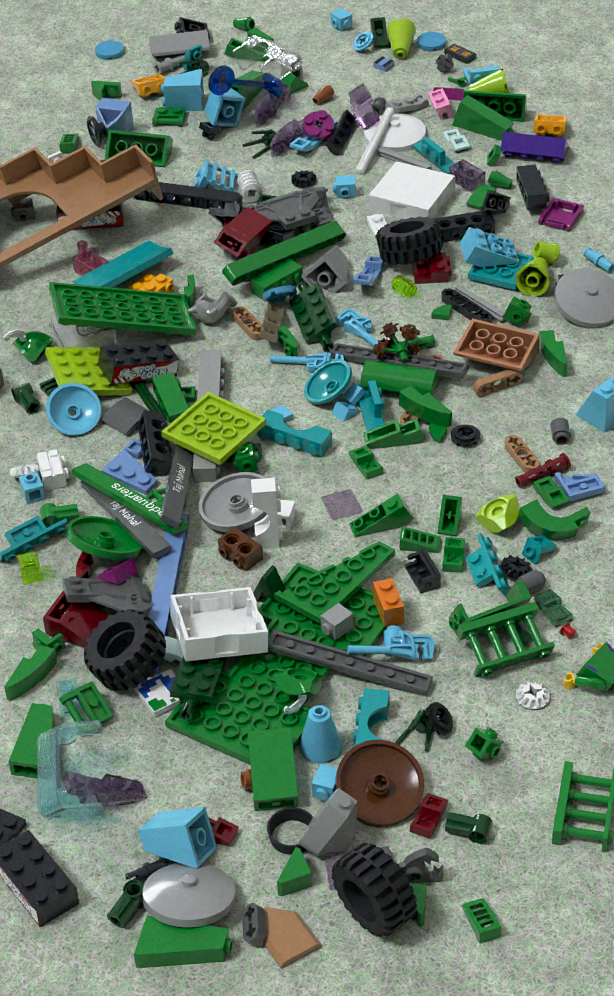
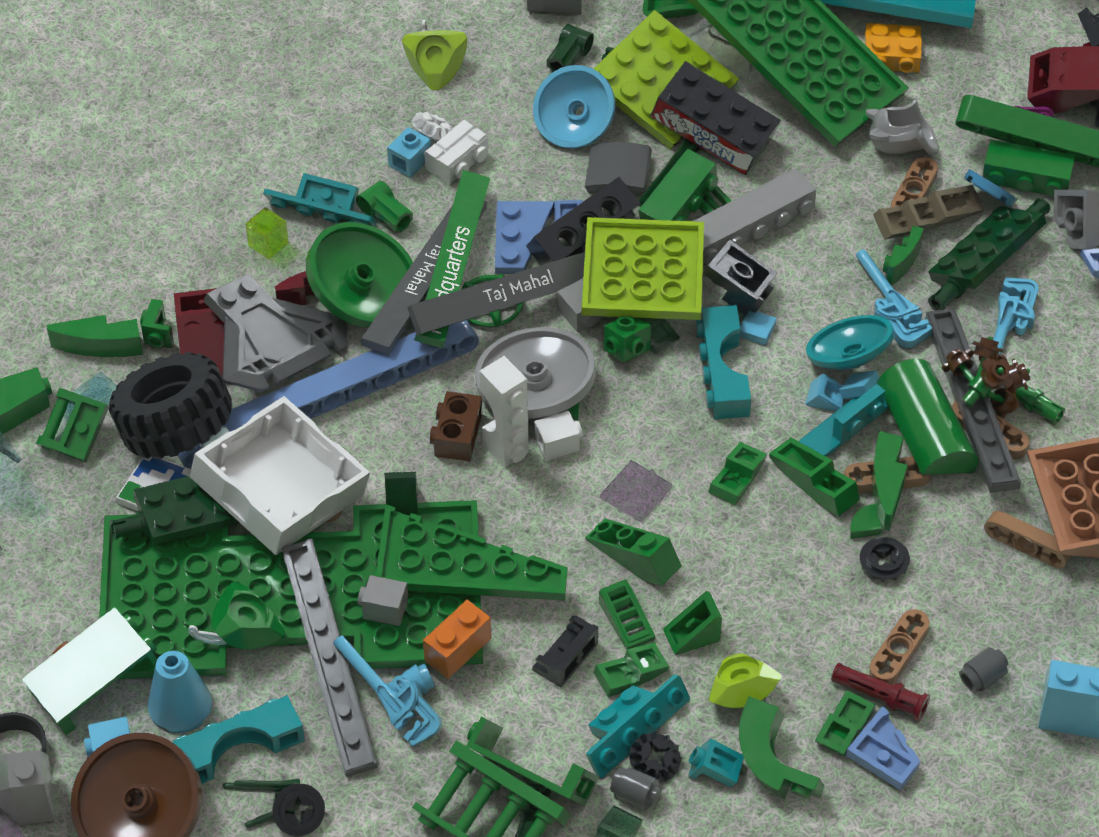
camera: 55 degrees right, 10 degrees up
(119, 572) = (313, 324): magenta slope -> none
(190, 291) = (923, 91): green slope -> none
(252, 399) = (742, 276): none -> black plate

